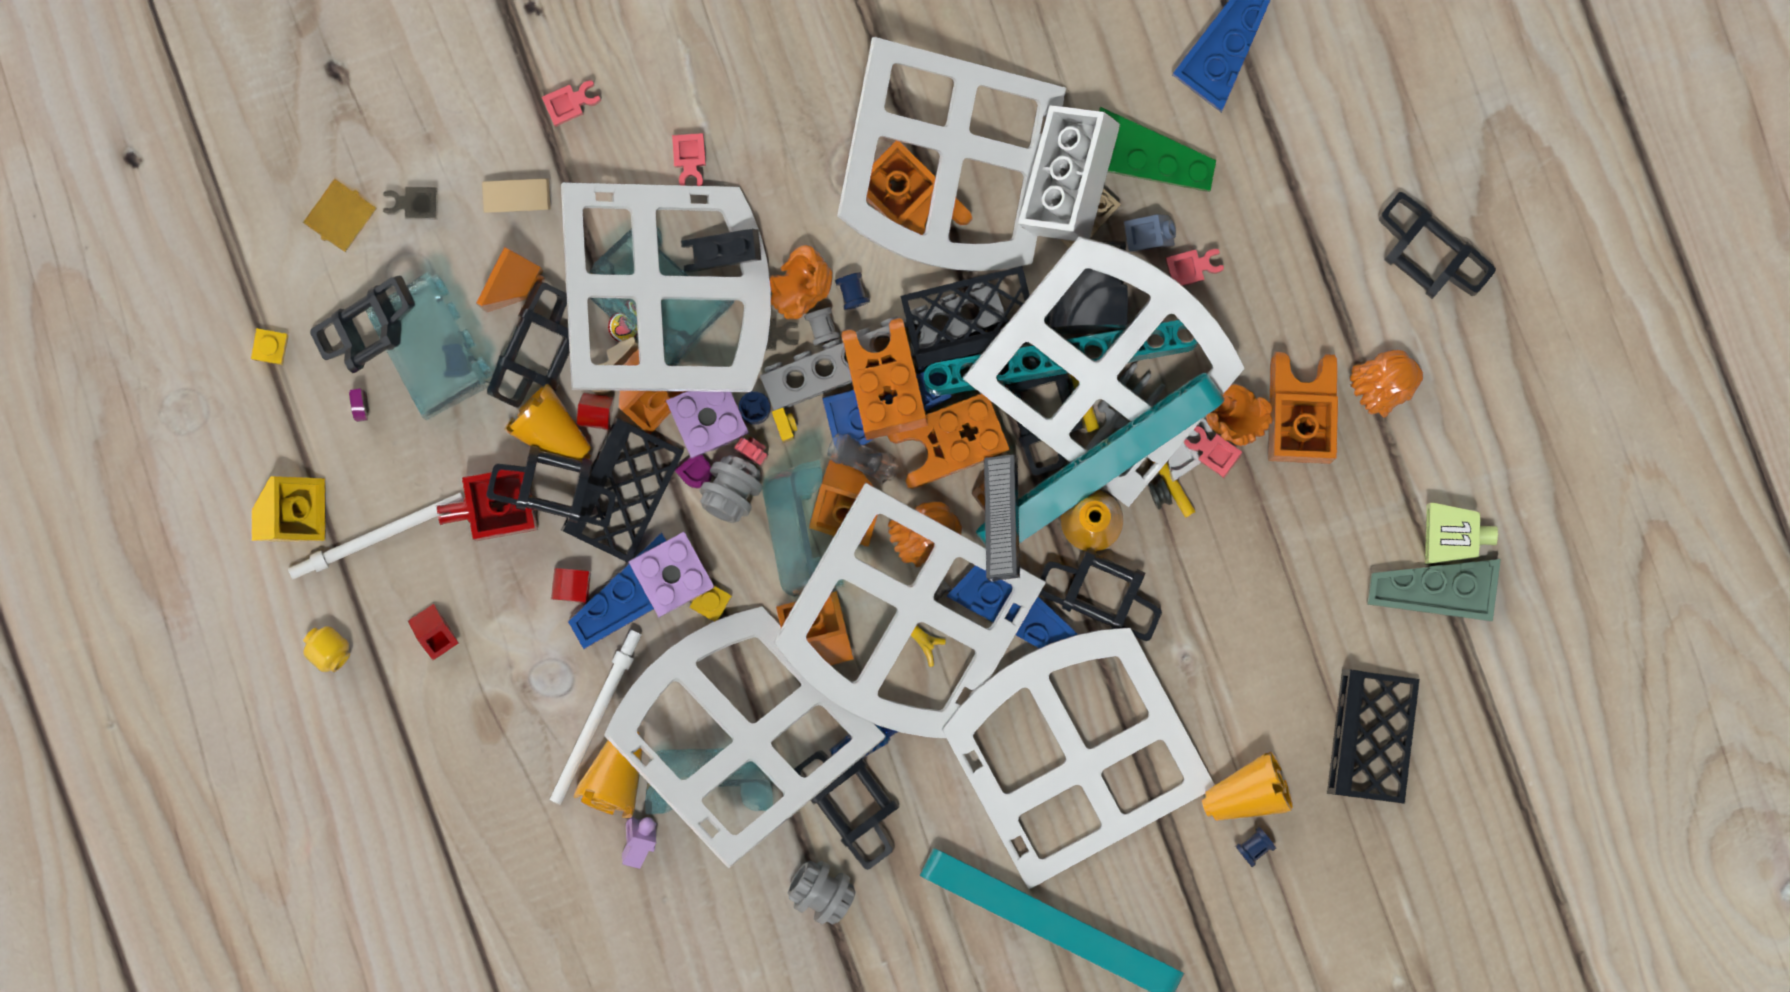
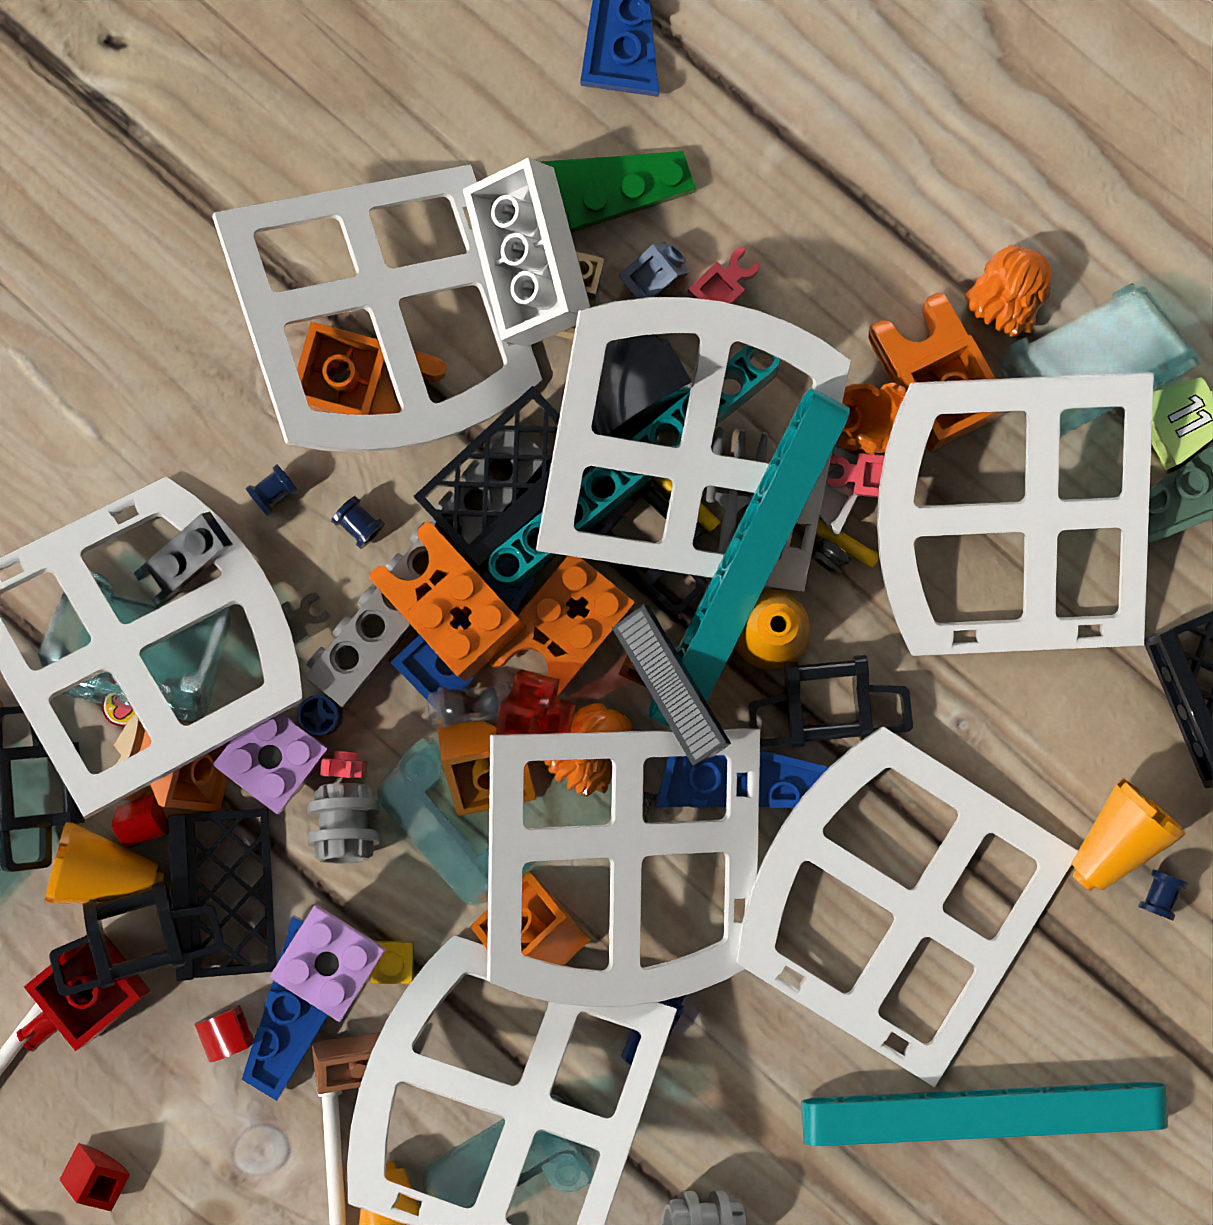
camera: 30 degrees left, 0 degrees up
(641, 648) = (342, 1062): none -> nougat slope
(688, 154) = (88, 471): coral plate -> none
(695, 472) = (293, 825): magenta tile -> none
(785, 424) = (365, 715): yellow plate -> none
(803, 285) = (298, 545): orange hair -> none
(807, 235) = (272, 490): none -> dark blue bush
(822, 326) = (345, 580): light grey bush -> none
(849, 836) = (699, 1141): black bar -> none
(903, 481) = (534, 707): none -> clear red brick
(926, 643) = (662, 871): yellow bar -> none
(1313, 543) = (1037, 515): none -> white window
(1415, 463) = (1114, 339): none -> clear light blue windscreen
(1426, 220) = (942, 119): black bar -> none

